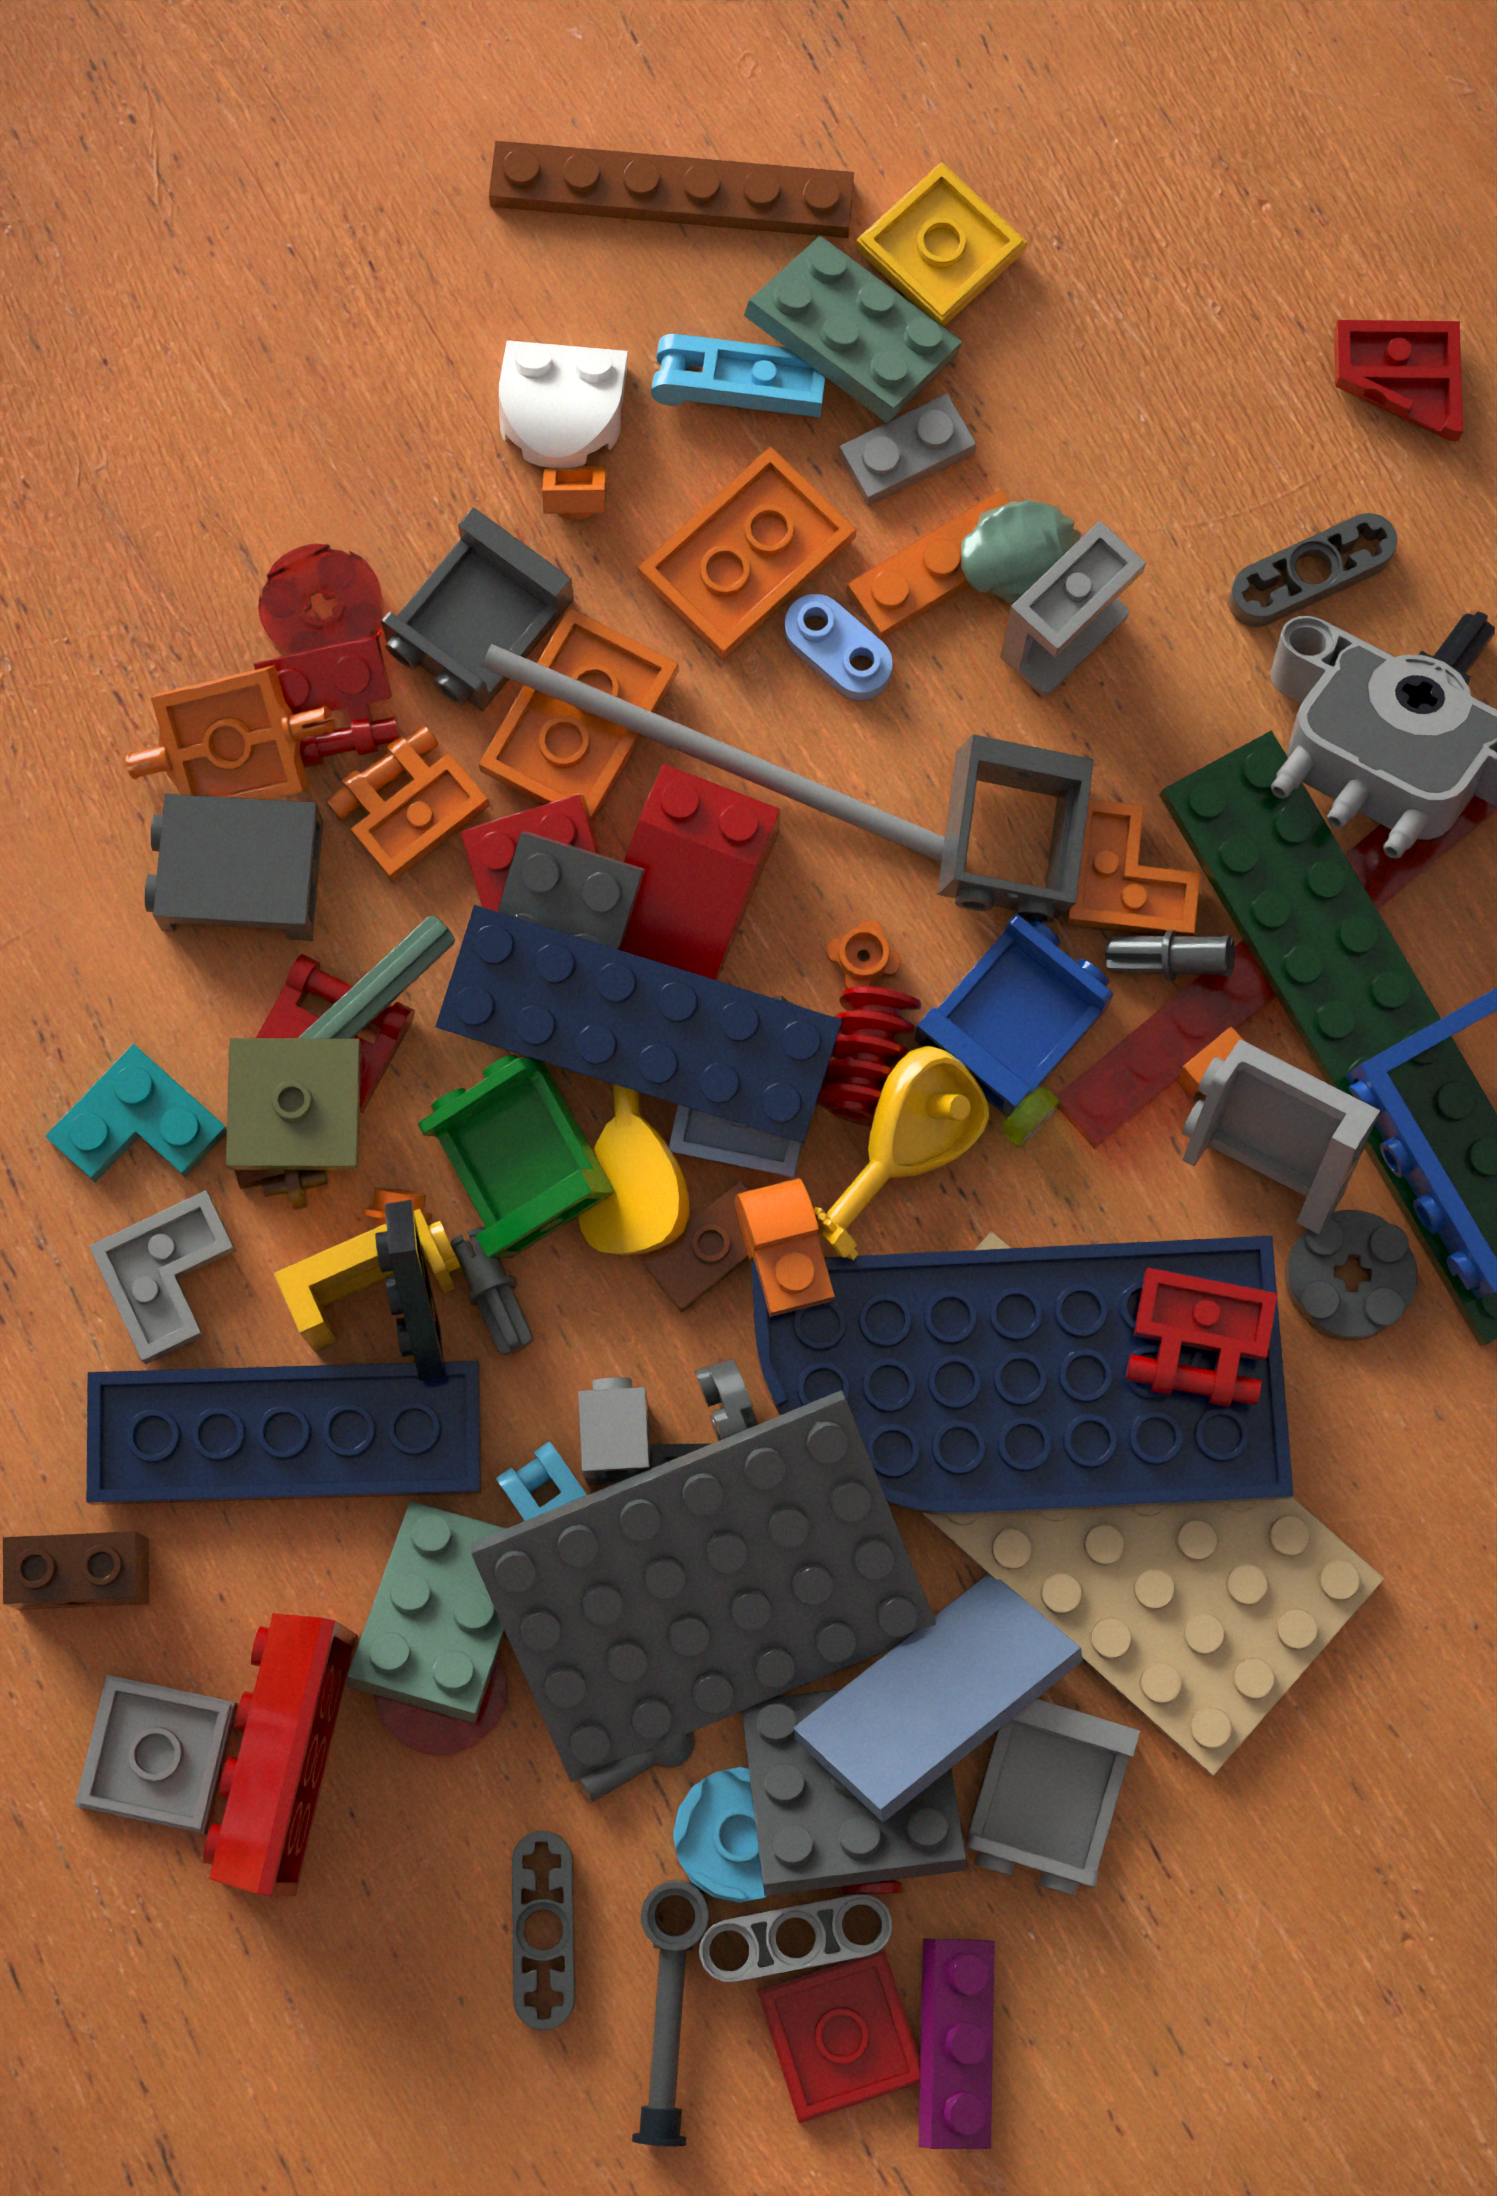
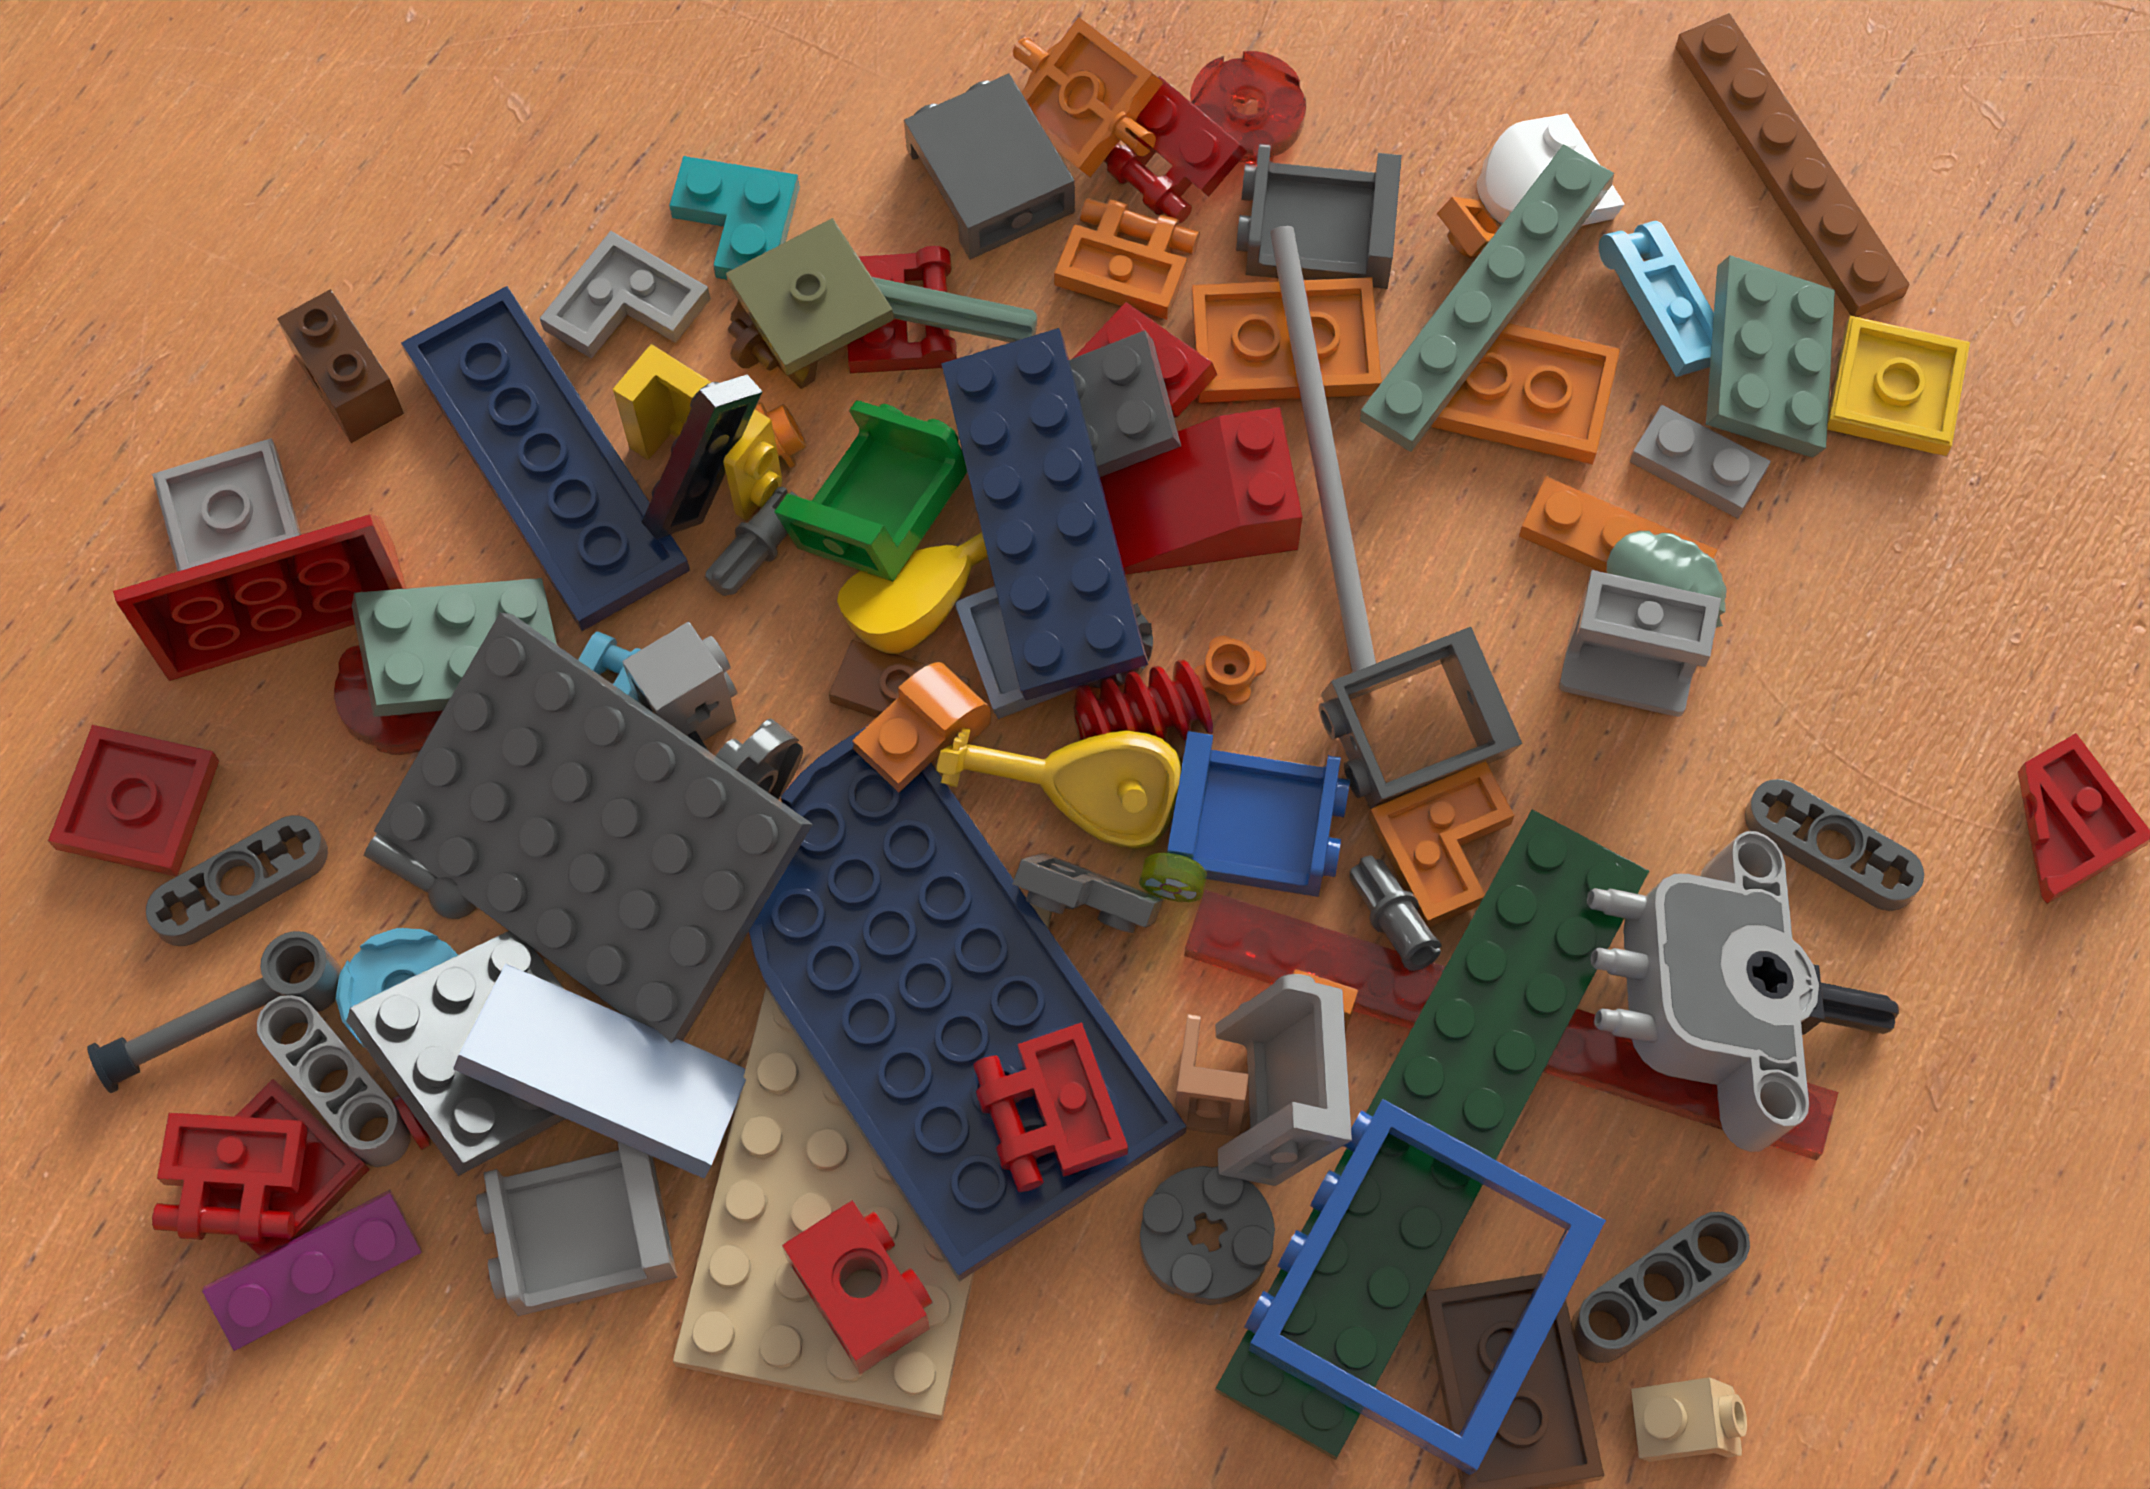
camera: 60 degrees right, 10 degrees down
(409, 1985) = (134, 800): none -> red plate
(658, 523) = (1486, 298): none -> sand green plate
(820, 2062) = (234, 1155): none -> red plate
(836, 645) = (1487, 499): light blue plate -> none
(1001, 1203) = (1062, 885): none -> dark grey plate
(1228, 1210) = (1208, 1097): none -> nougat panel
(1294, 1591) = (865, 1326): none -> red brick

